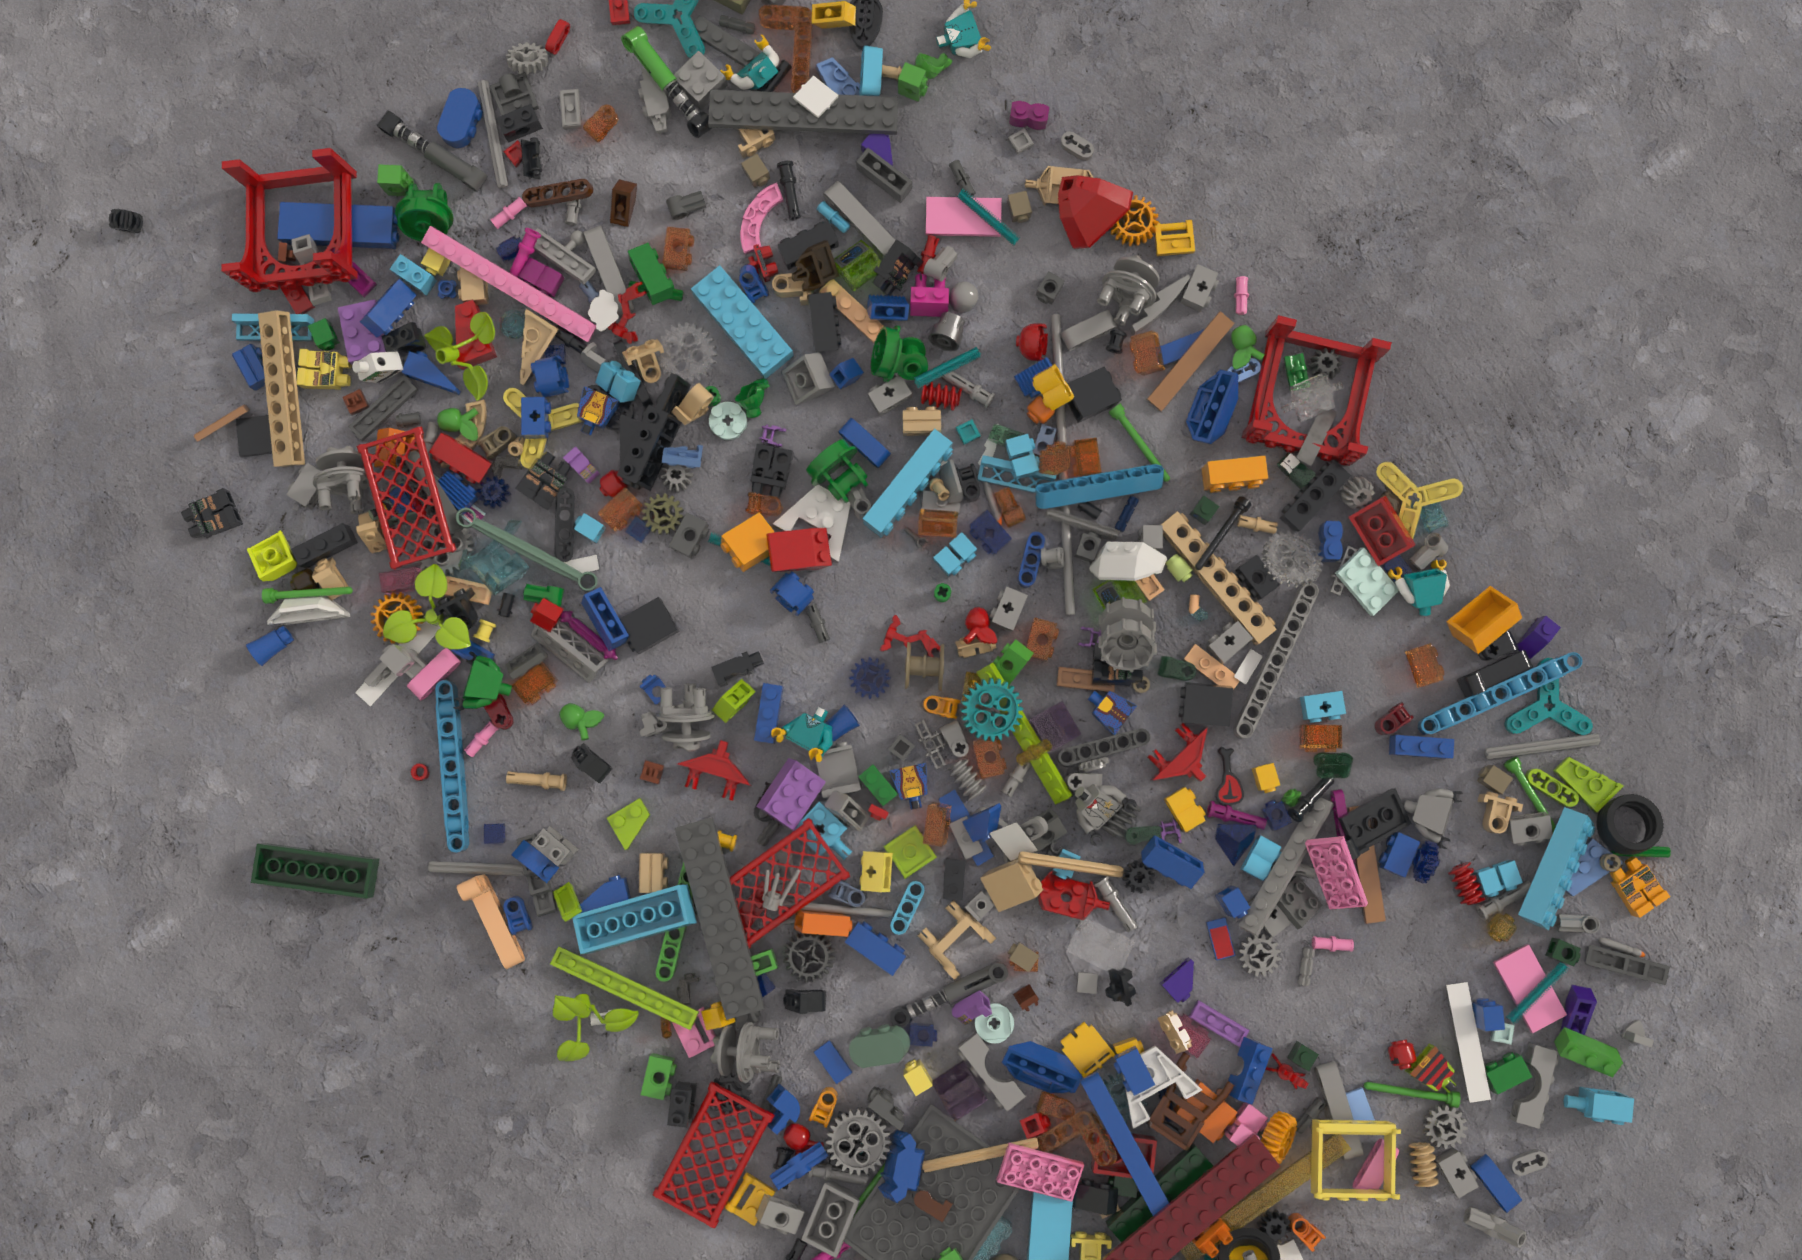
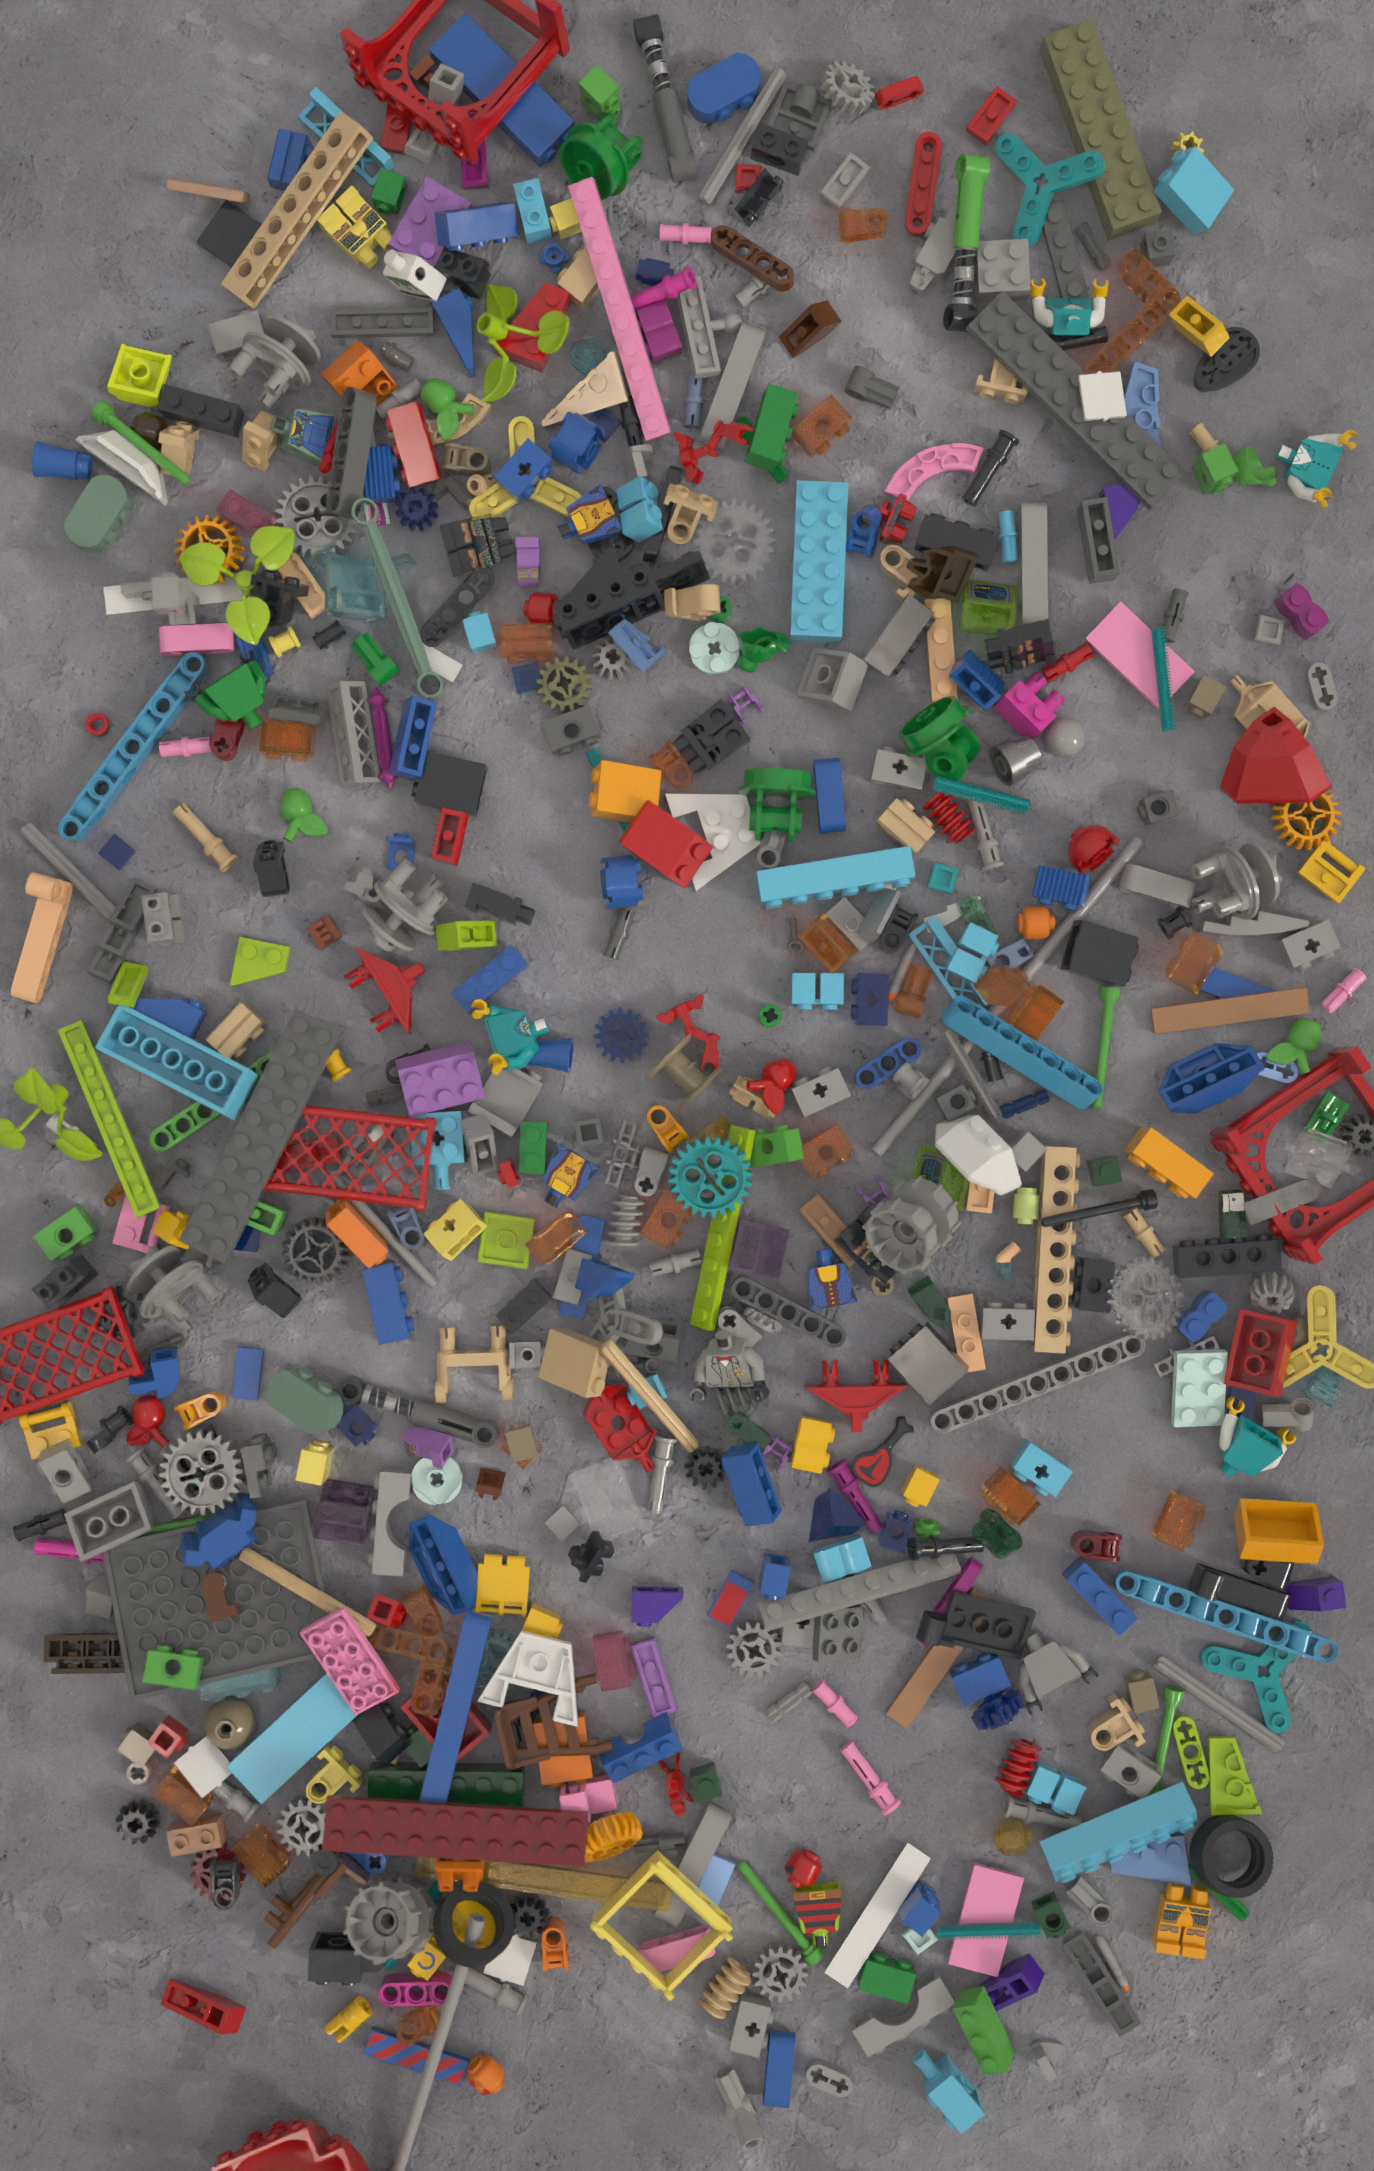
camera: 45 degrees right, 5 degrees up
(212, 514) = (118, 277): black hips -> none
(316, 654) = (98, 514): none -> sand green brick
(355, 402) = (360, 291): copper tile -> none
(381, 512) = (285, 429): red door -> none
(518, 916) = (67, 954): blue piece -> none
(535, 861) = (130, 916): blue brick -> none
(546, 614) = (358, 681): red brick -> none
(603, 310) = (690, 423): white sticker -> none
(614, 72) = (923, 183): none -> red plate
(674, 654) = (449, 836): none -> red brick
(755, 171) = (973, 417): dark tan brick -> none
(771, 898) = (328, 1164): light grey plant -> none
(798, 1165) = (124, 1442): blue piece -> none
(846, 373) = (875, 709): blue brick -> none
(871, 71) = (1183, 420): medium azure beam -> none
(900, 914) = (445, 1300): medium azure beam -> none
(938, 267) = (1068, 684): light grey piece -> none
(938, 487) = (862, 905): tan pin -> none
(1013, 840) = (613, 1323): white sticker -> none
(1034, 752) = (714, 1255): clear yellow pin -> none
(1052, 387) = (1066, 912): yellow brick -> none
(1134, 1071) = (528, 1648): blue brick -> none
(1178, 1039) = (599, 1659): tan hinge -> none
(1248, 666) = (1003, 1363): white sticker -> none
(1336, 872) = (900, 1640): bright pink tile -> none
(1401, 969) = (876, 1787): none -> bright pink pin
(1616, 862) = (1172, 1866): dark tan bush -> none

